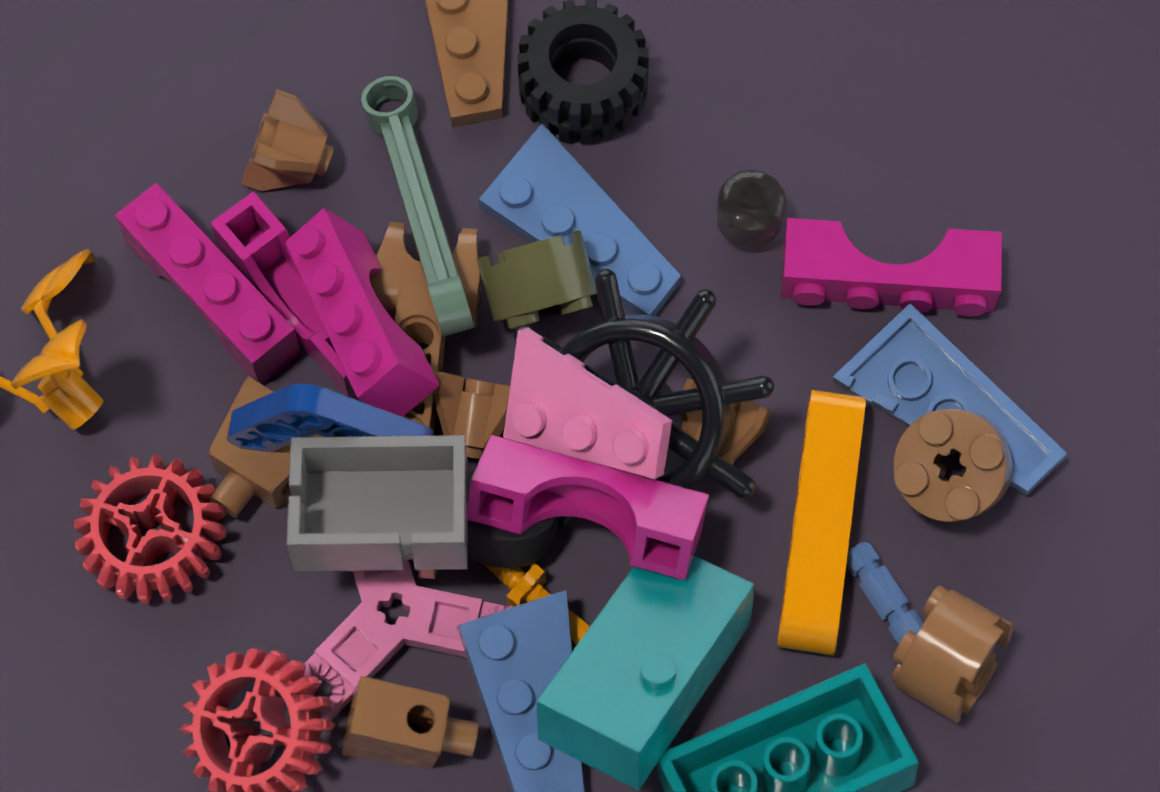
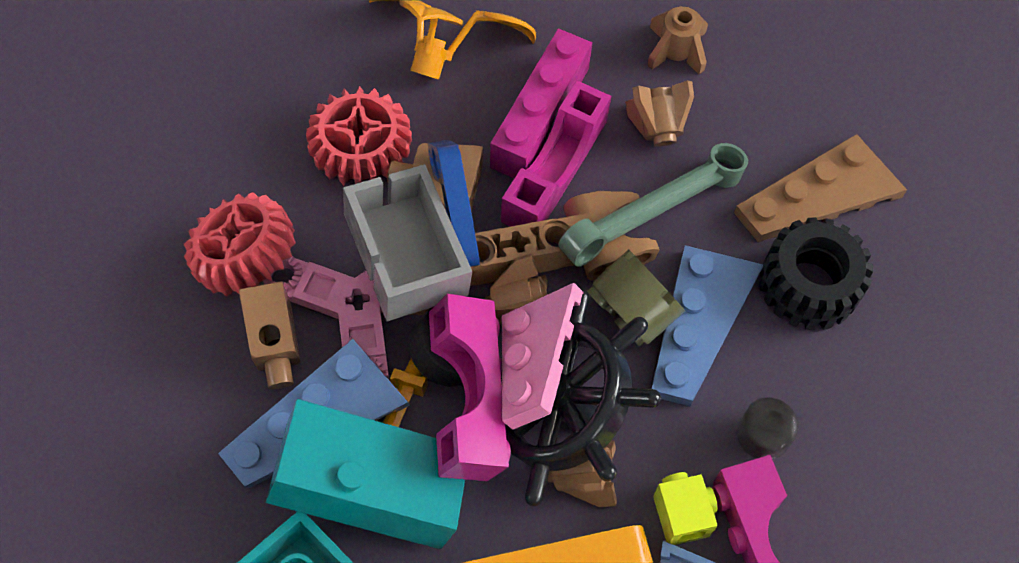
camera: 65 degrees right, 5 degrees down
(181, 78) = (679, 38): none -> medium nougat brick
(377, 355) = (517, 207): dark pink arch -> none
(806, 337) = (685, 508): none -> neon yellow brick

